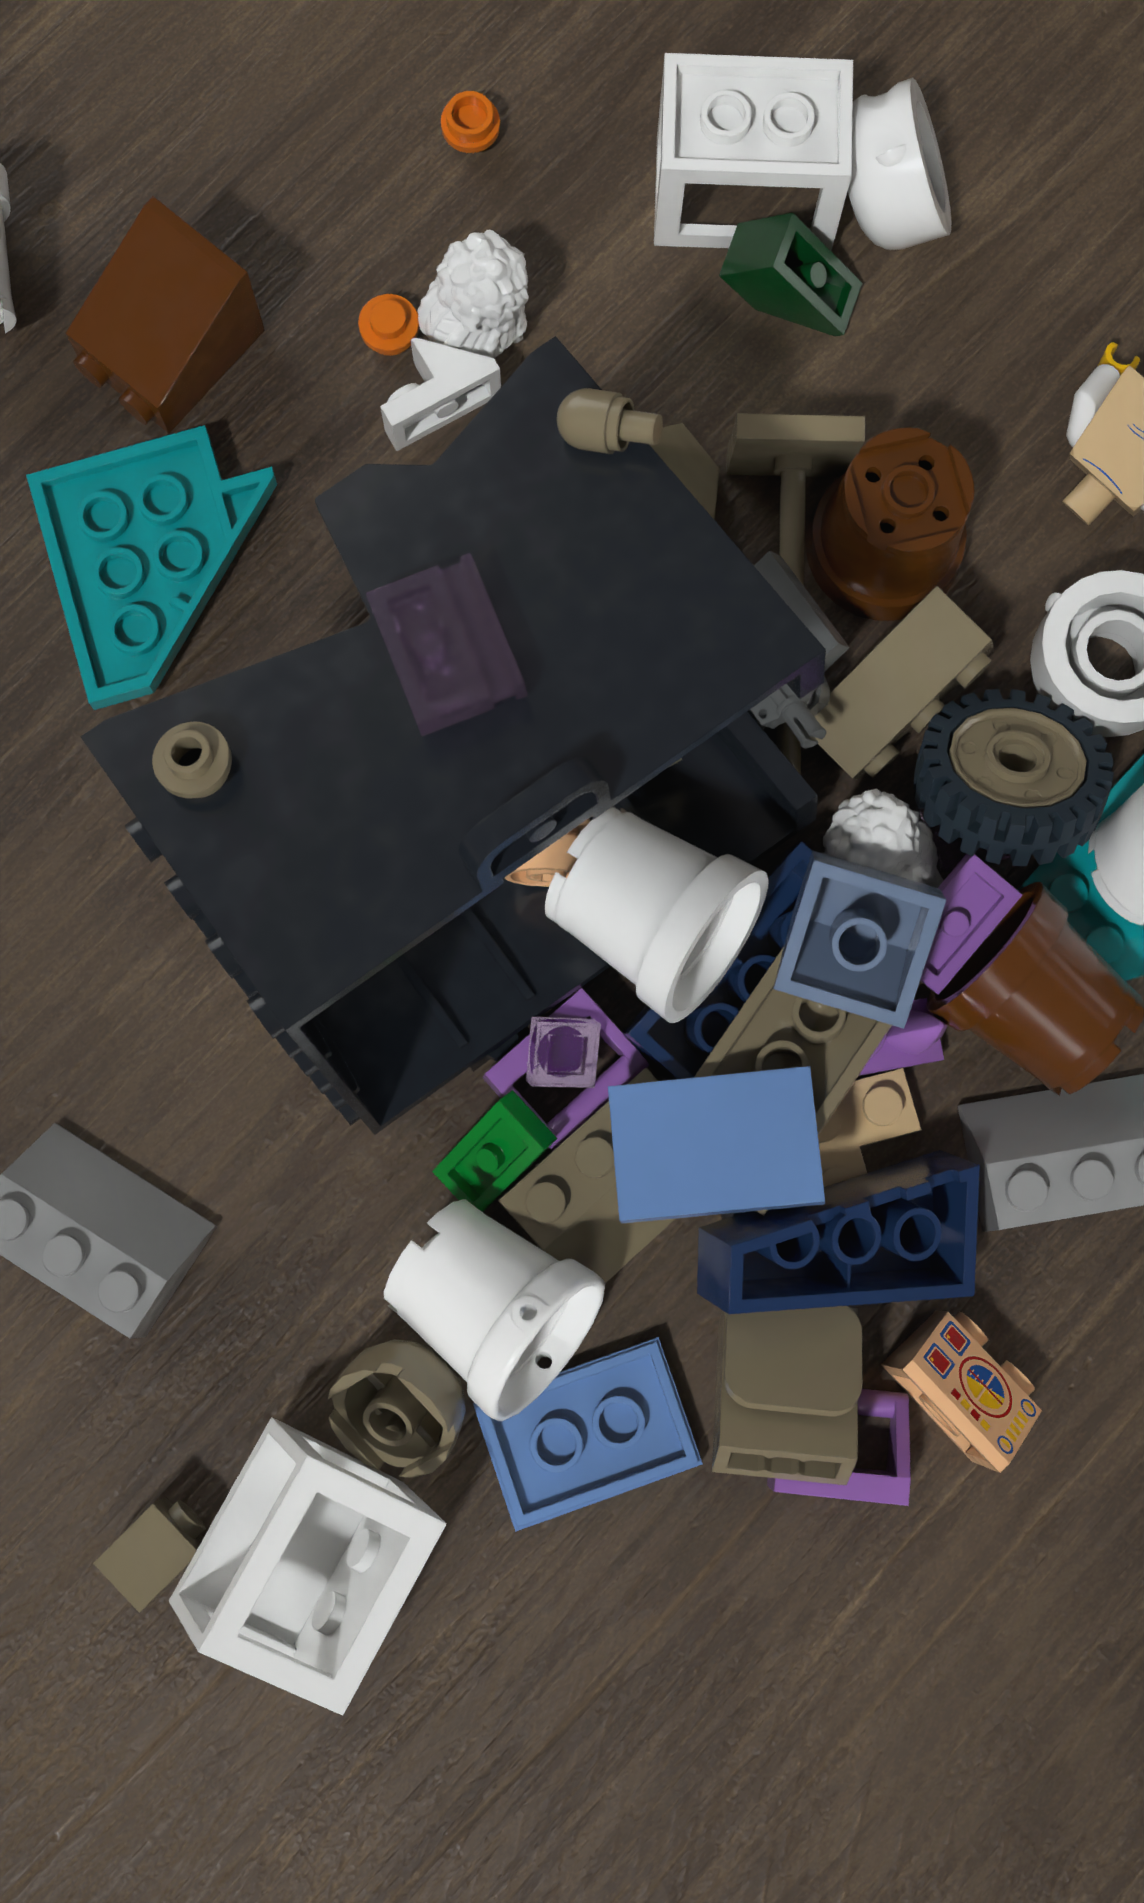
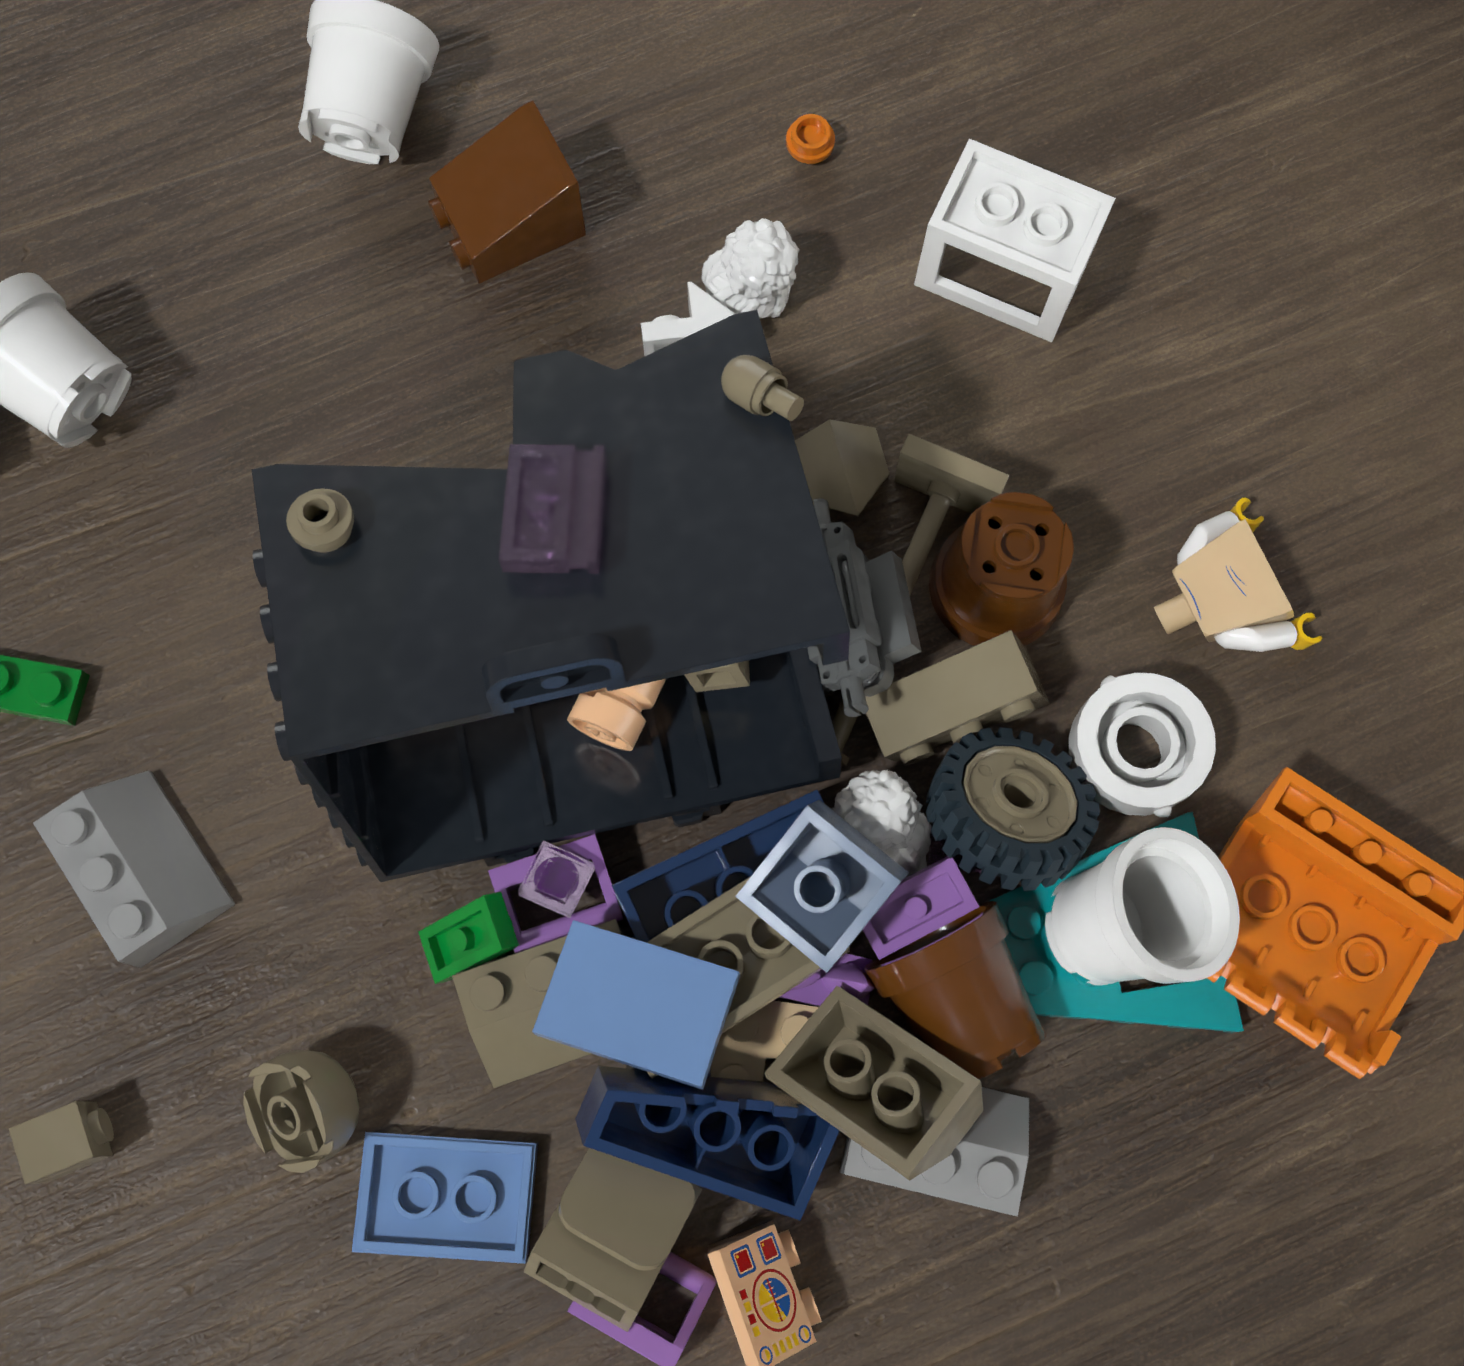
camera: 25 degrees right, 5 degrees down
(140, 552) = (413, 362): teal wing -> none
(305, 1567) = (165, 1205): white piece -> none
(388, 324) = (679, 264): orange plate -> none
(494, 1306) = (409, 1061): white piece -> none
(657, 908) = (669, 795): white piece -> none
(790, 274) = (1009, 347): dark green slope -> none
(897, 170) = (1124, 296): white piece -> none
(1000, 1121) = (878, 1085): none -> dark tan slope

